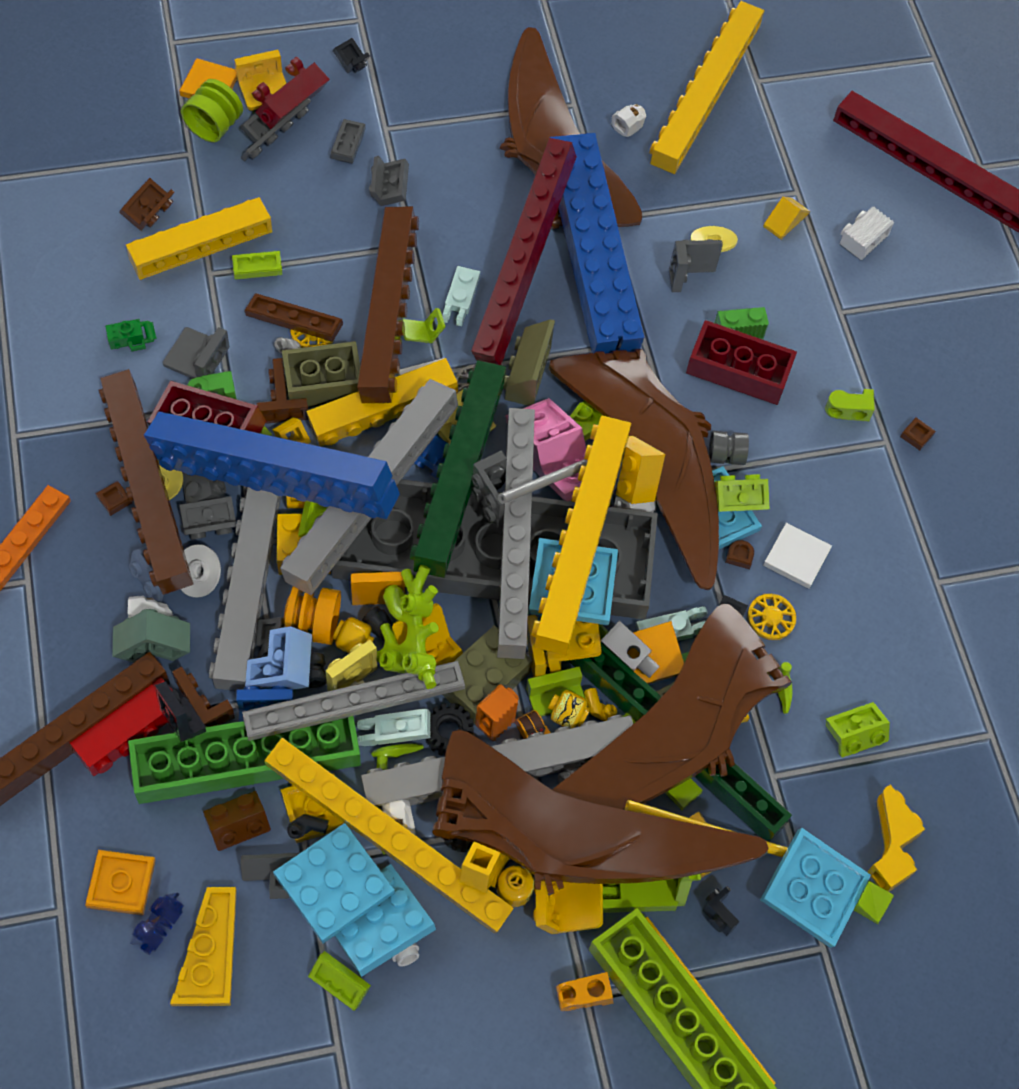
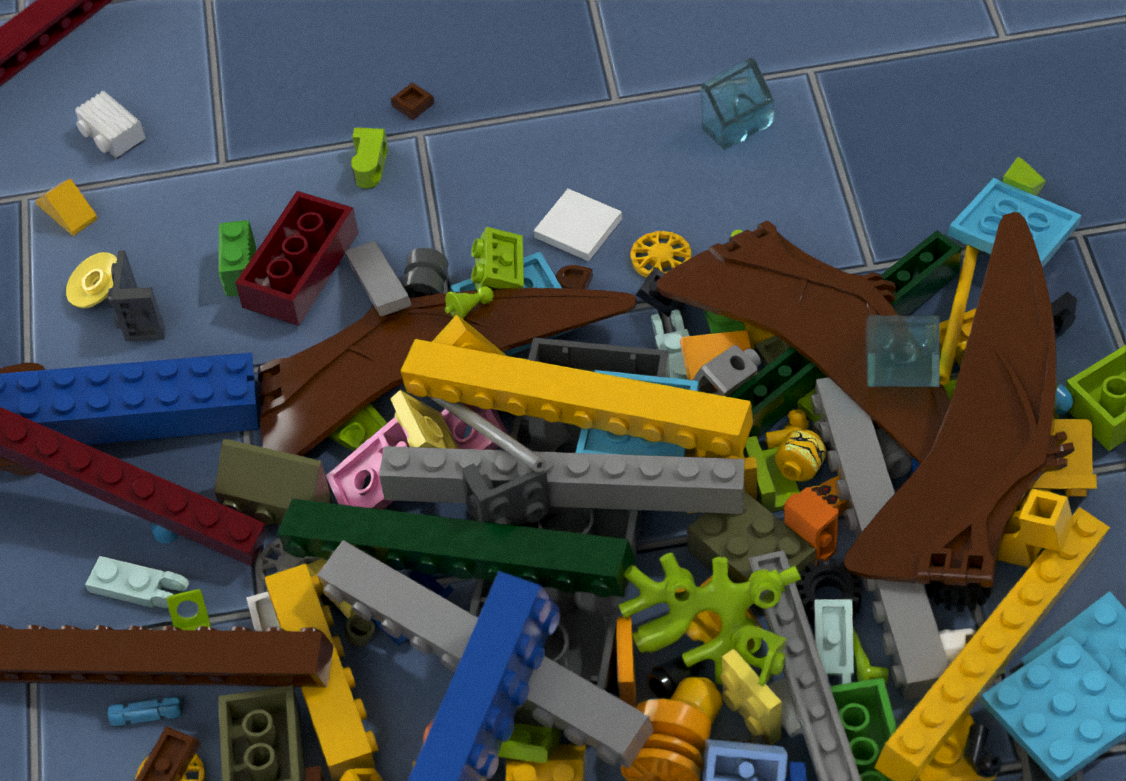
camera: 75 degrees left, 10 degrees down
(361, 309) = (144, 710): none -> dark azure axle
(368, 673) = (774, 660): none -> lime bracket
(563, 443) = (422, 423): none -> light yellow plate
(623, 904) = (1064, 400): none -> dark azure hinge
(644, 769) = (902, 351): none -> clear light blue slope
(693, 468) = (463, 303): none -> lime piece
(722, 414) = (377, 278): none -> light grey tile
(859, 729) = (810, 178): lime bracket -> none
(899, 829) = (939, 151): yellow arch -> none
(927, 666) = (736, 104): none -> clear light blue slope

